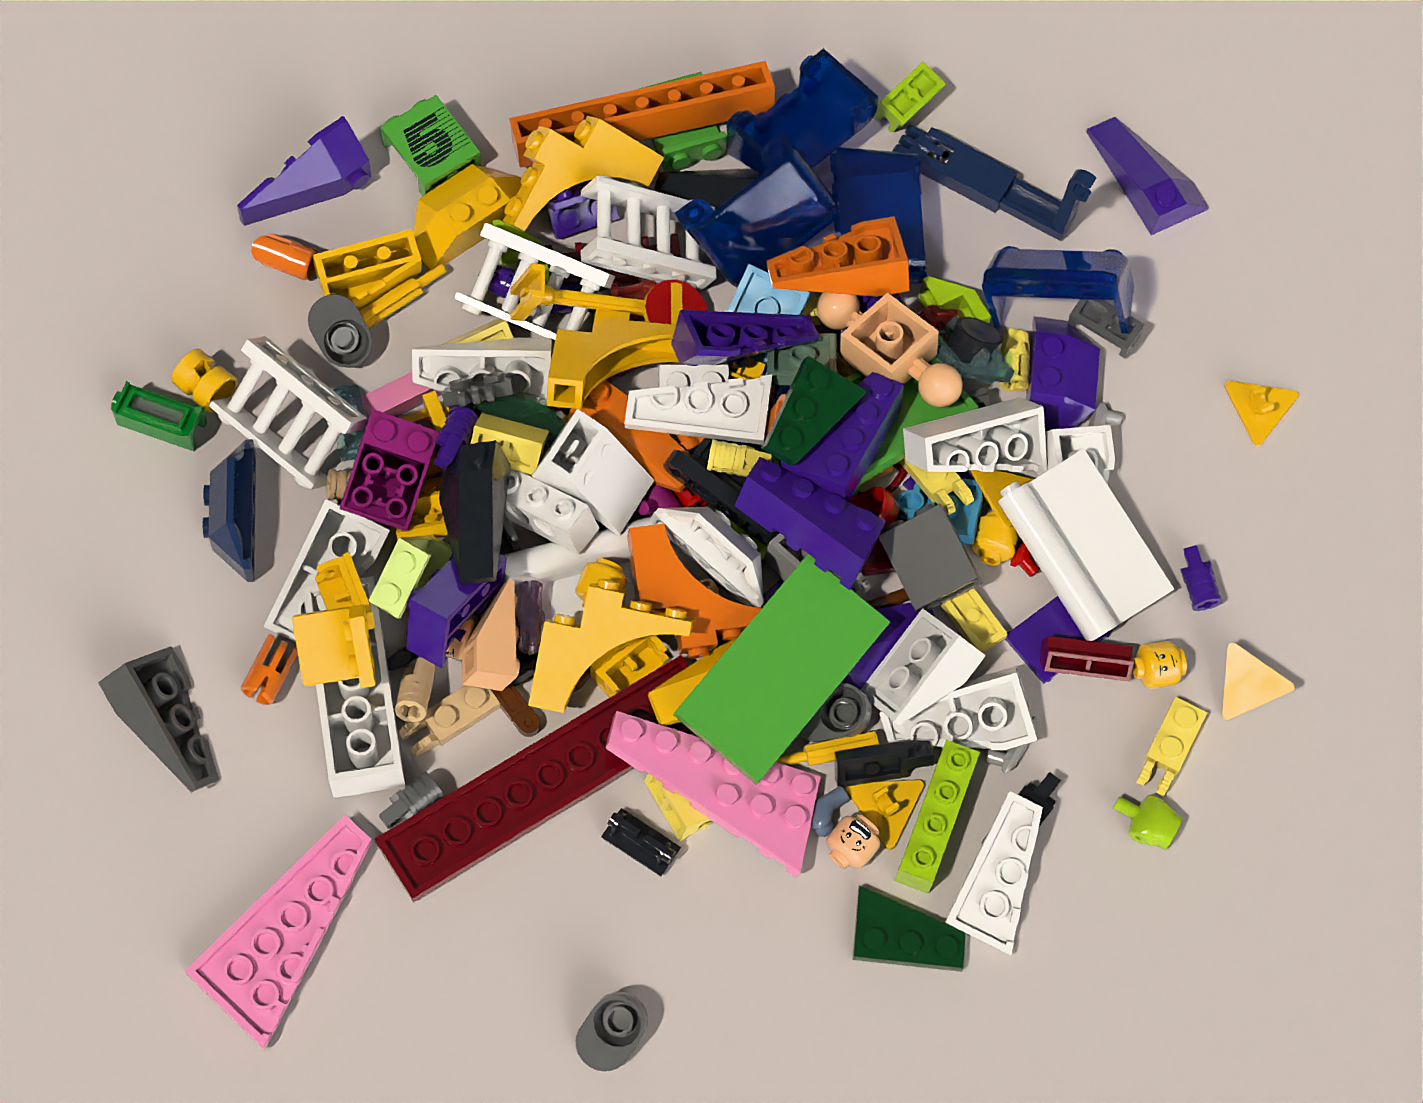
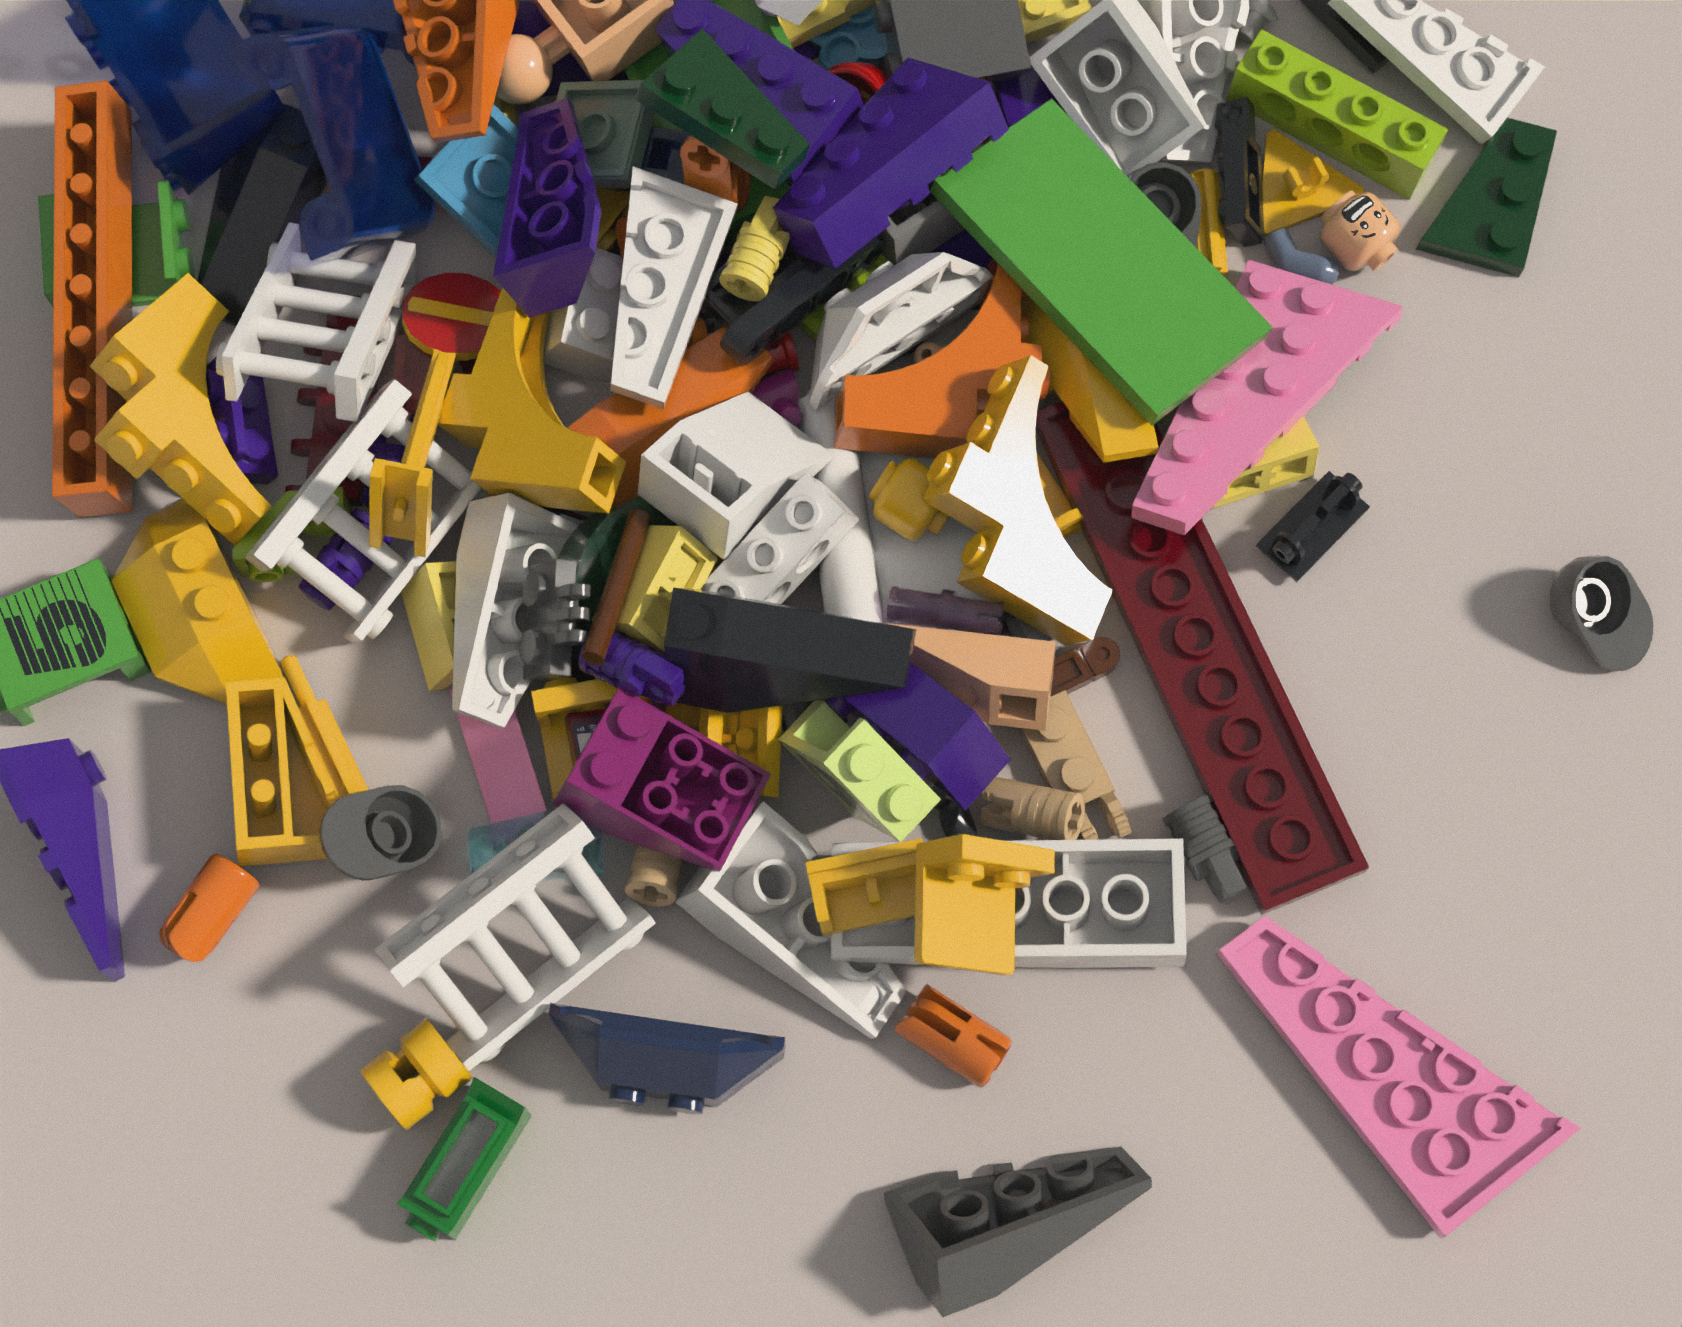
camera: 75 degrees left, 5 degrees up
(500, 417) = (616, 587): none -> reddish brown bar

